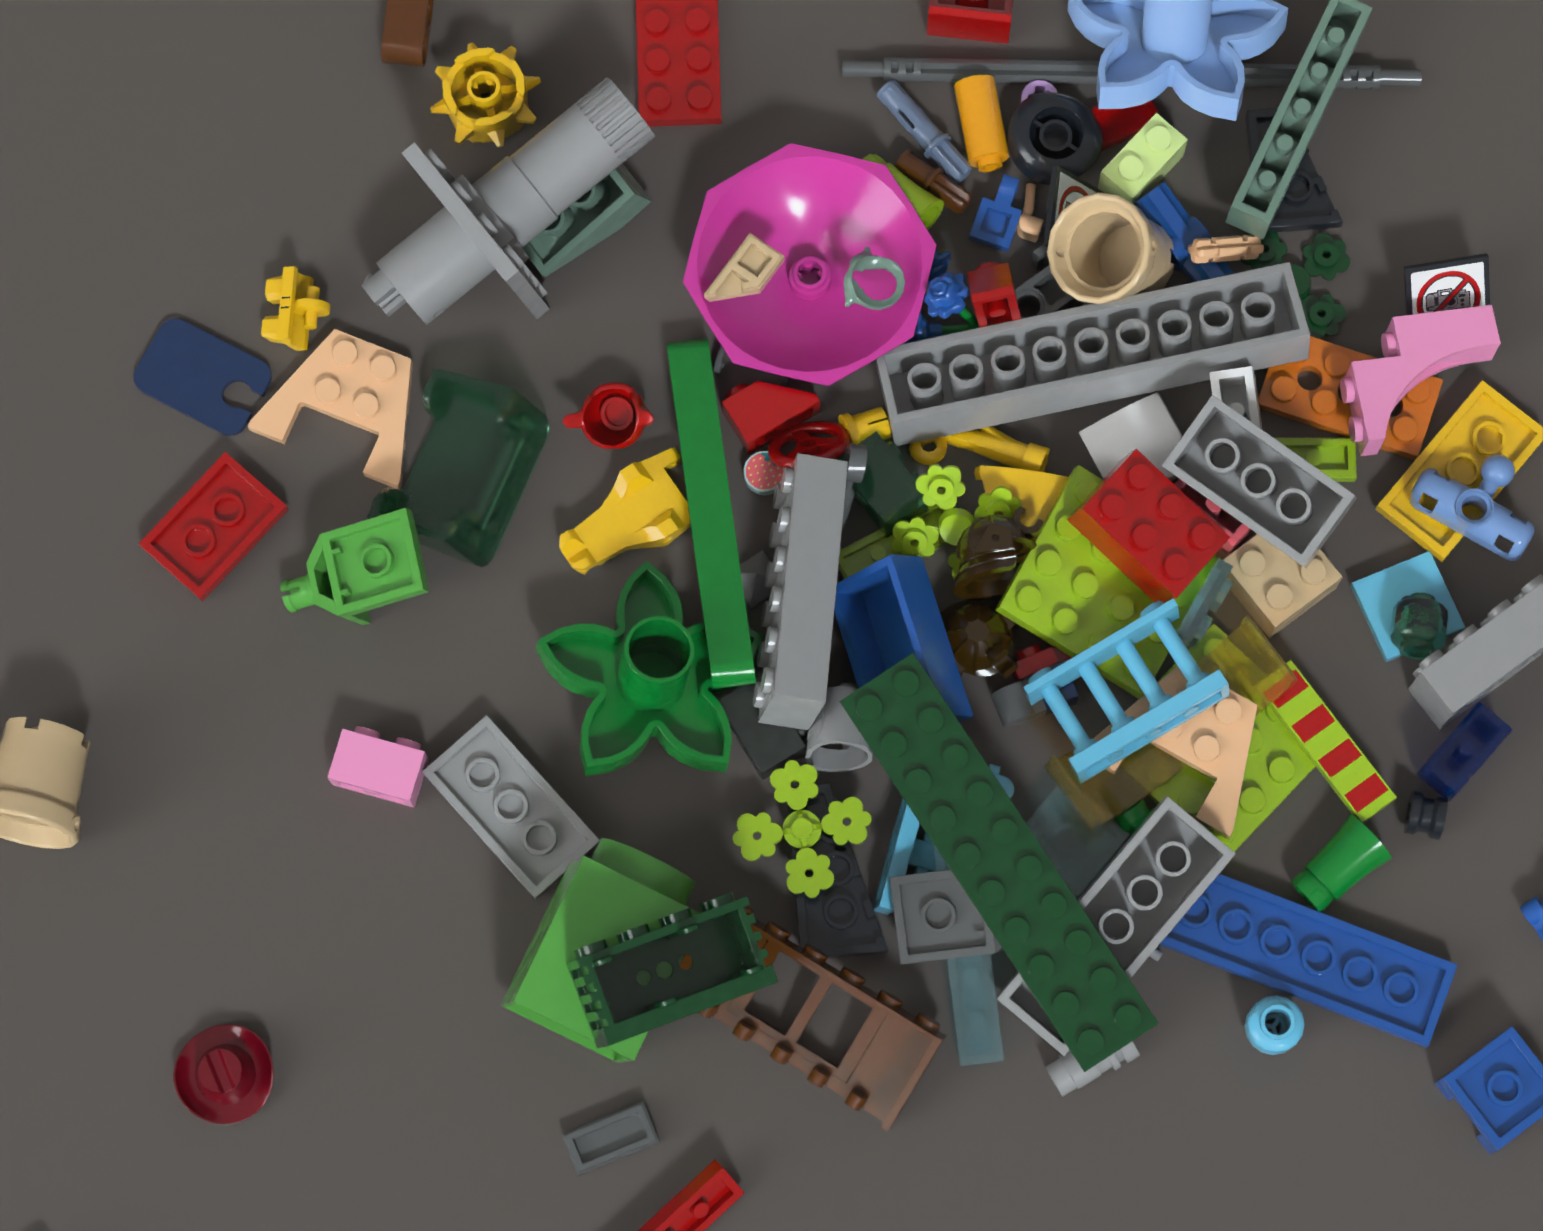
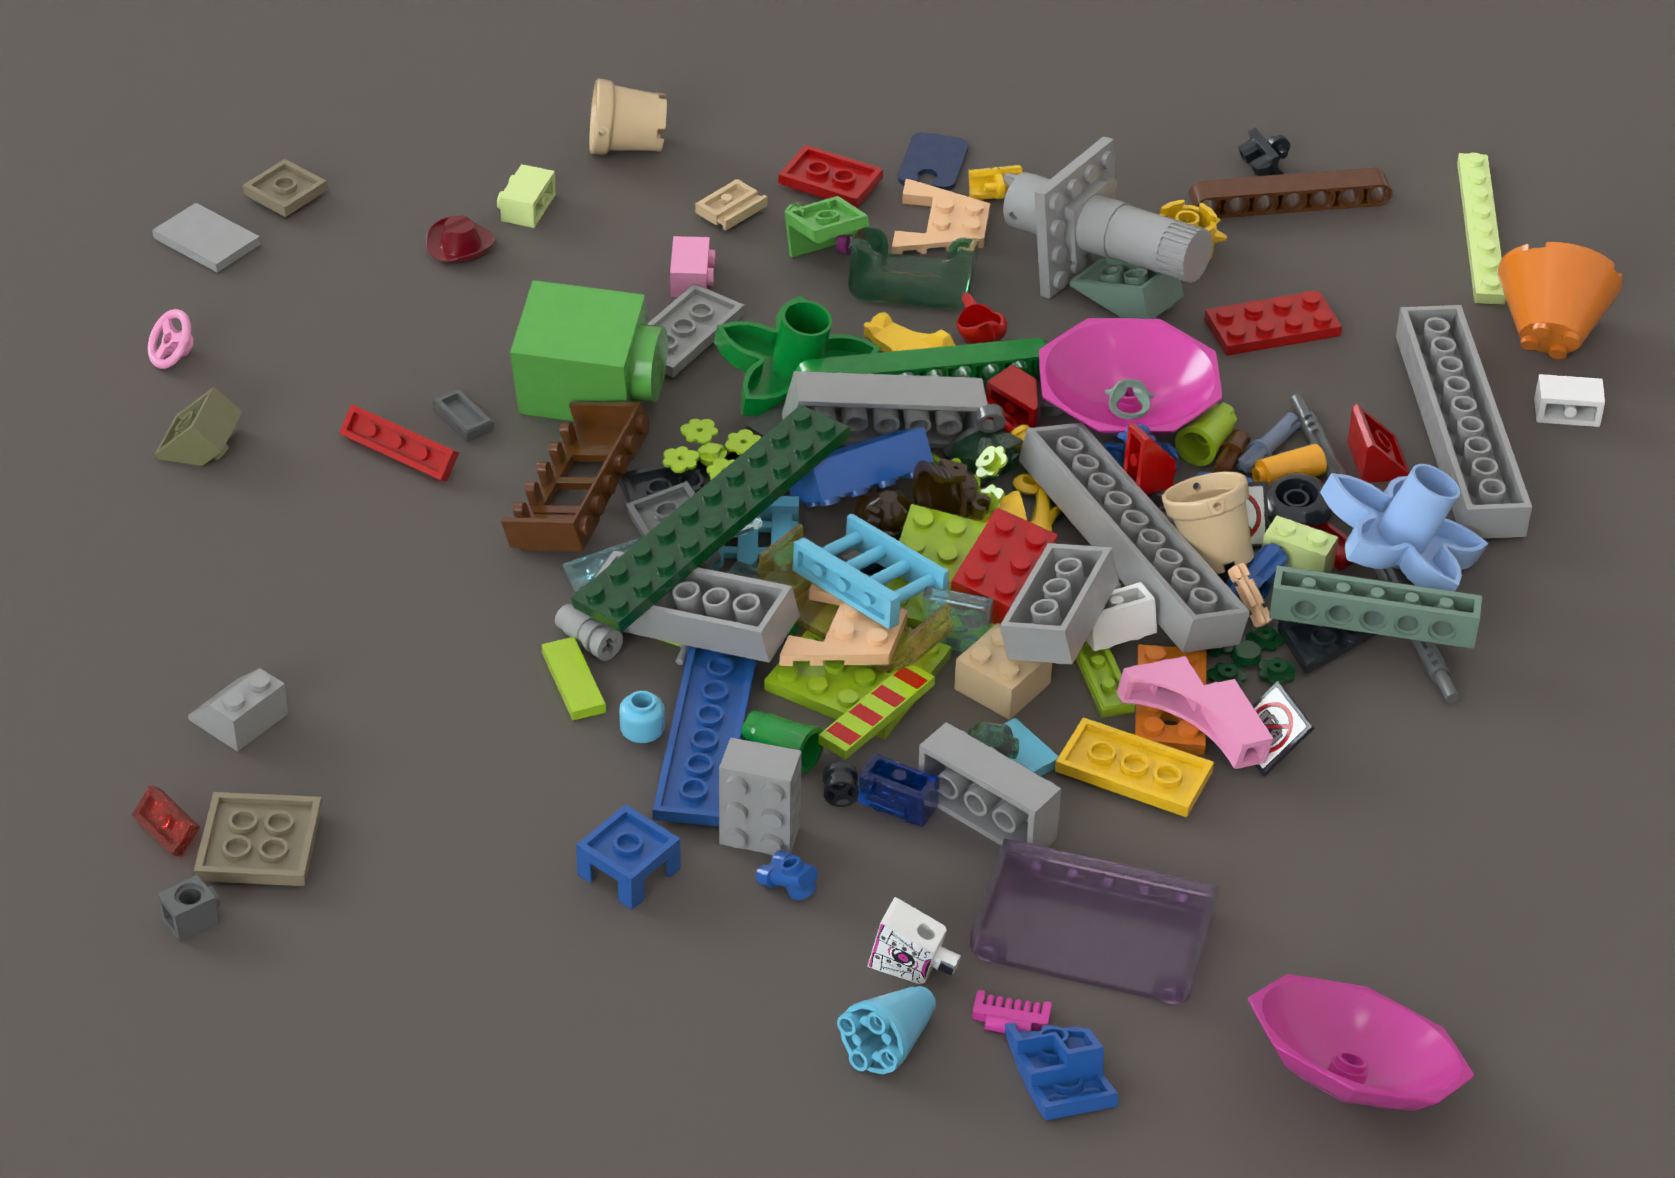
camera: 70 degrees right, 35 degrees down
(151, 960) = (527, 196): none -> yellowish green brick
(243, 679) = (731, 204): none -> tan plate
(722, 969) = (562, 309): dark green piece -> none
(746, 271) = (1108, 341): tan tile -> none
(1162, 1093) = (573, 678): none -> lime tile
(1481, 917) = (759, 796): none -> light grey brick
(1497, 520) = (1100, 760): medium blue piece -> none

